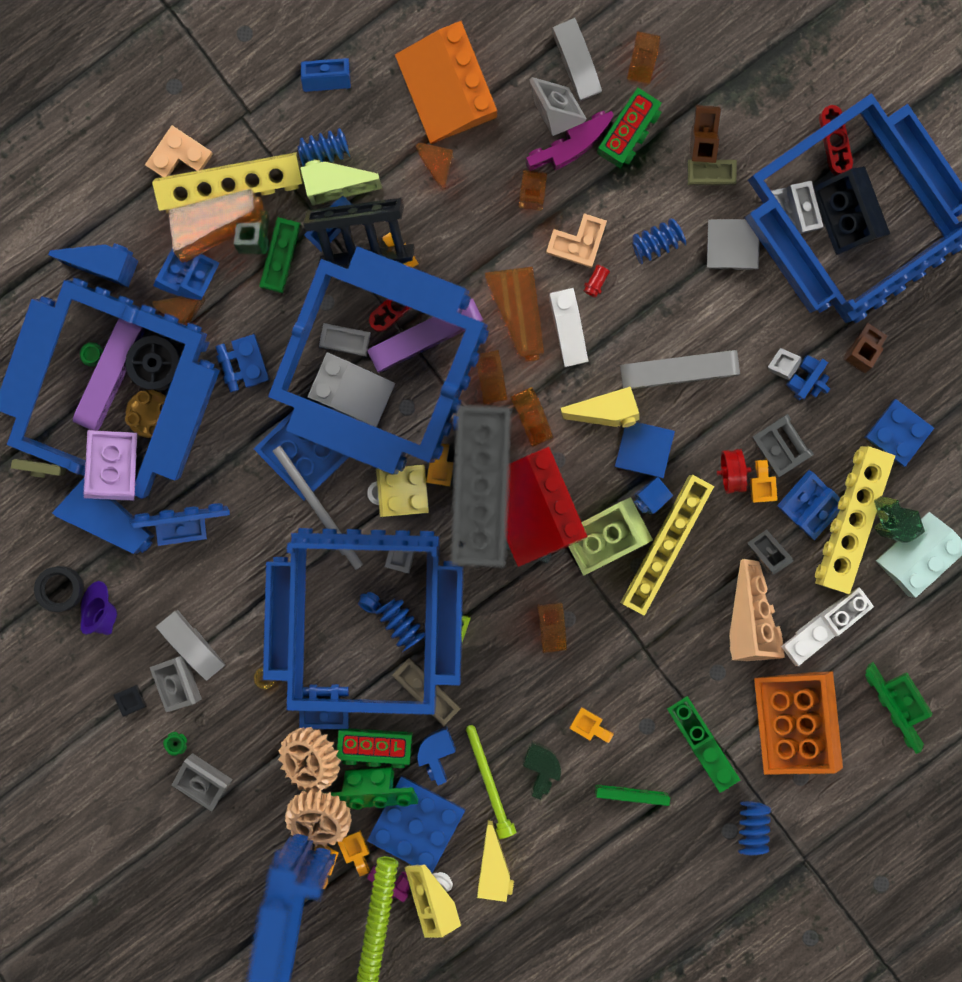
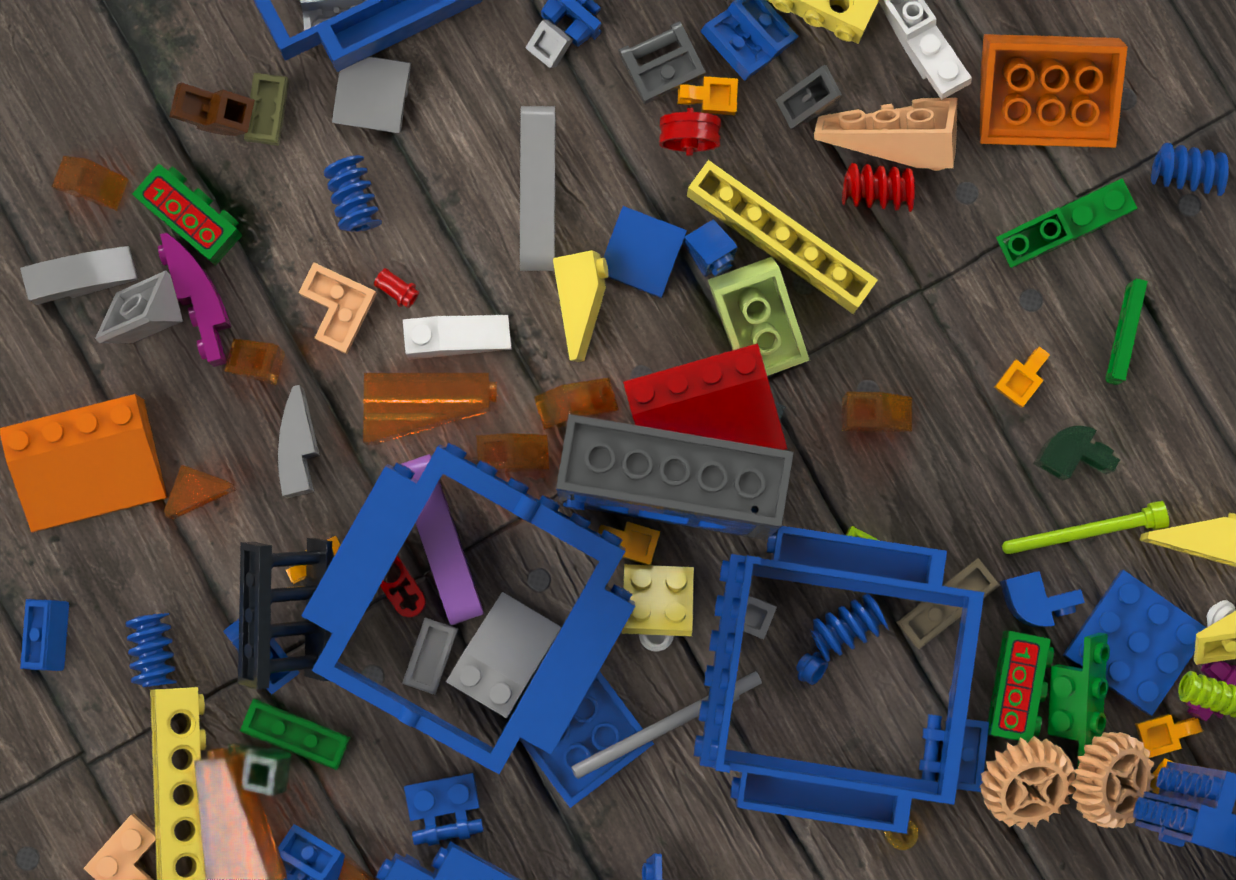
camera: 85 degrees left, 5 degrees down
(331, 181) = (201, 645): yellowish green slope -> none
(478, 227) = (295, 445): none -> light grey slope
(712, 609) = (879, 186): none -> red piece

